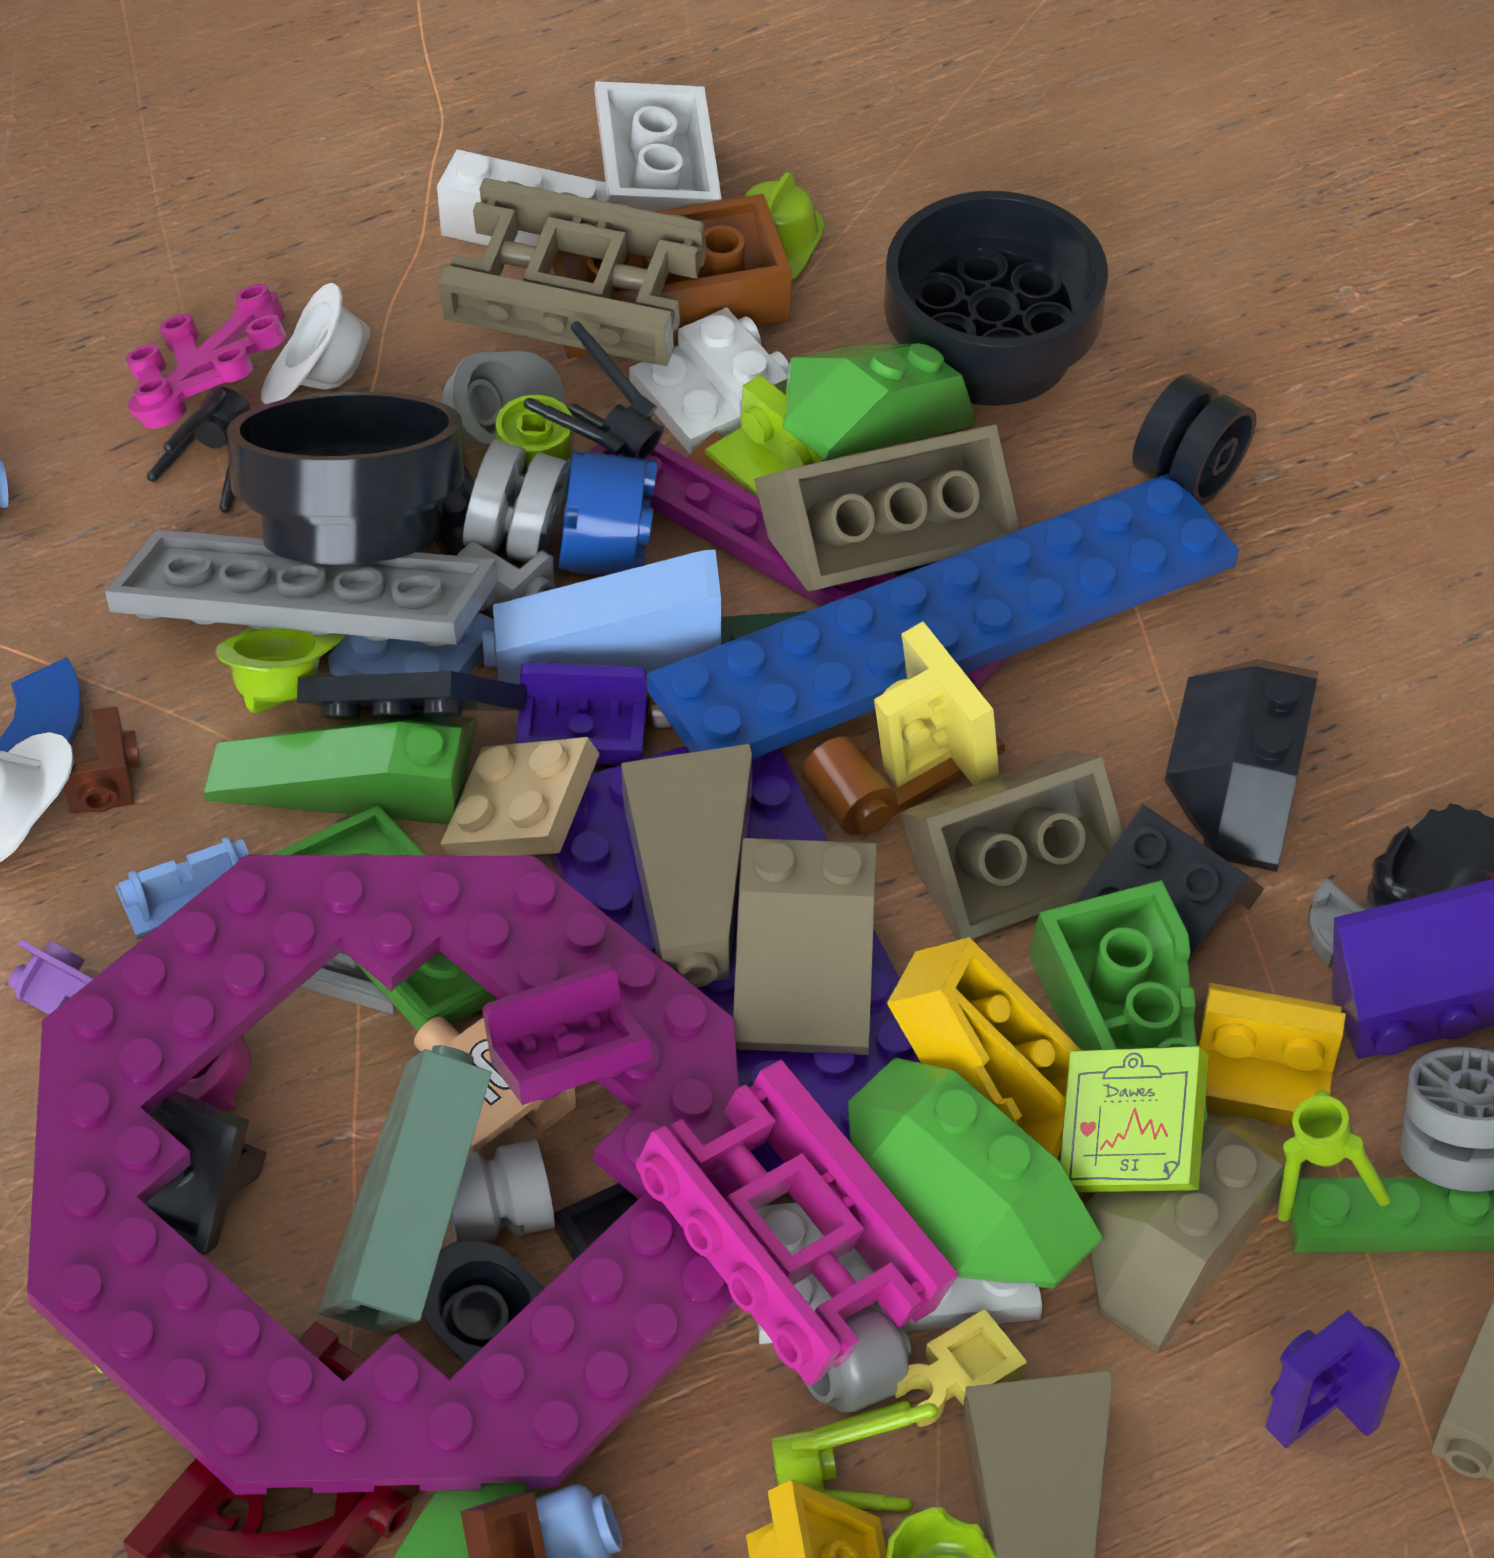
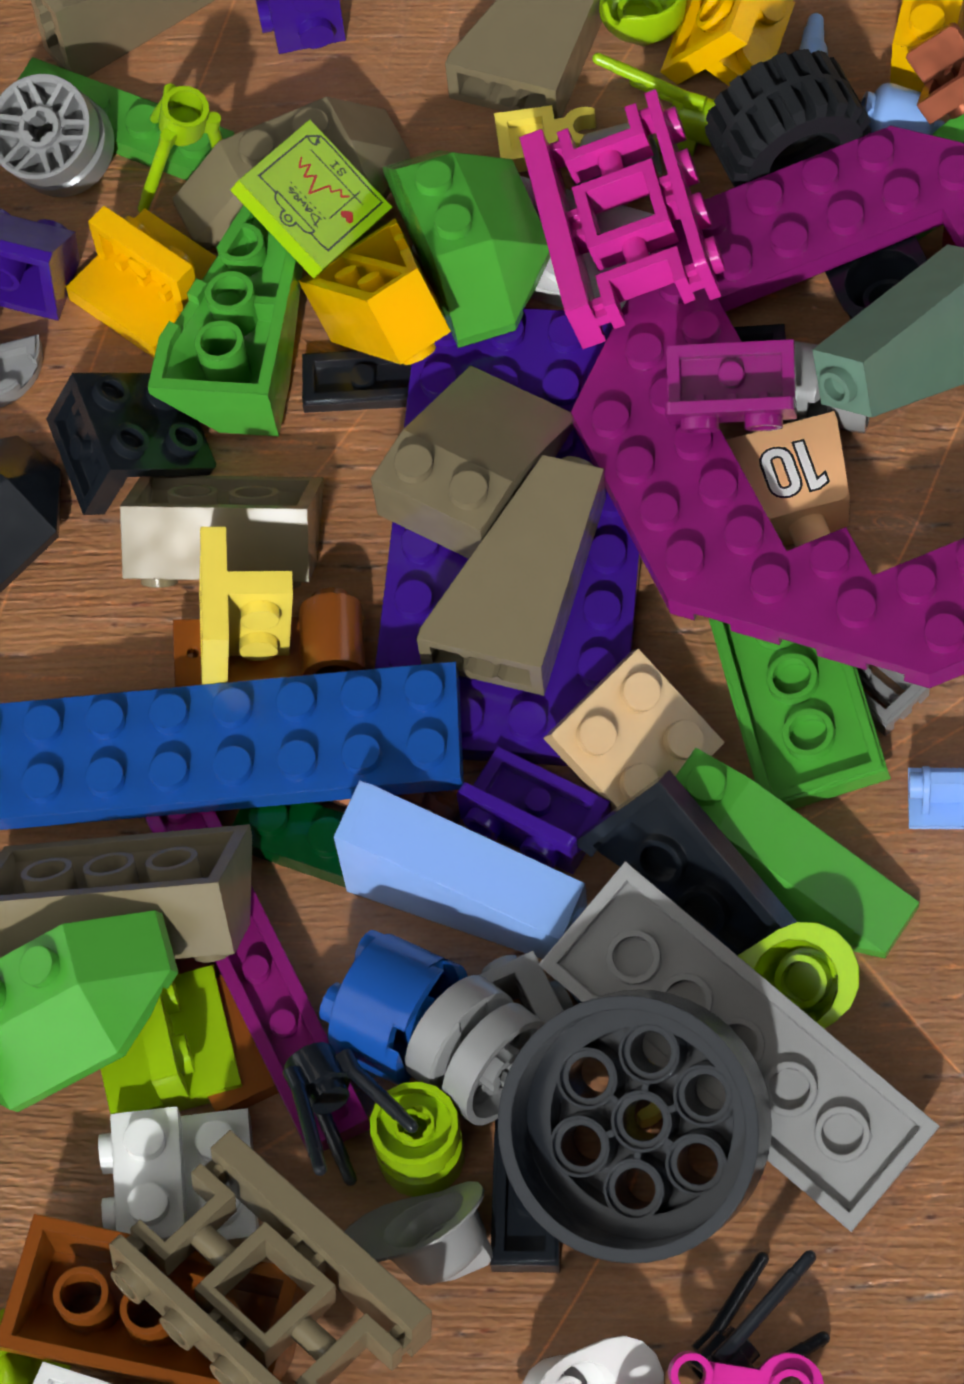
camera: 145 degrees left, 10 degrees up
(673, 1429) = (783, 115): none -> black tyre

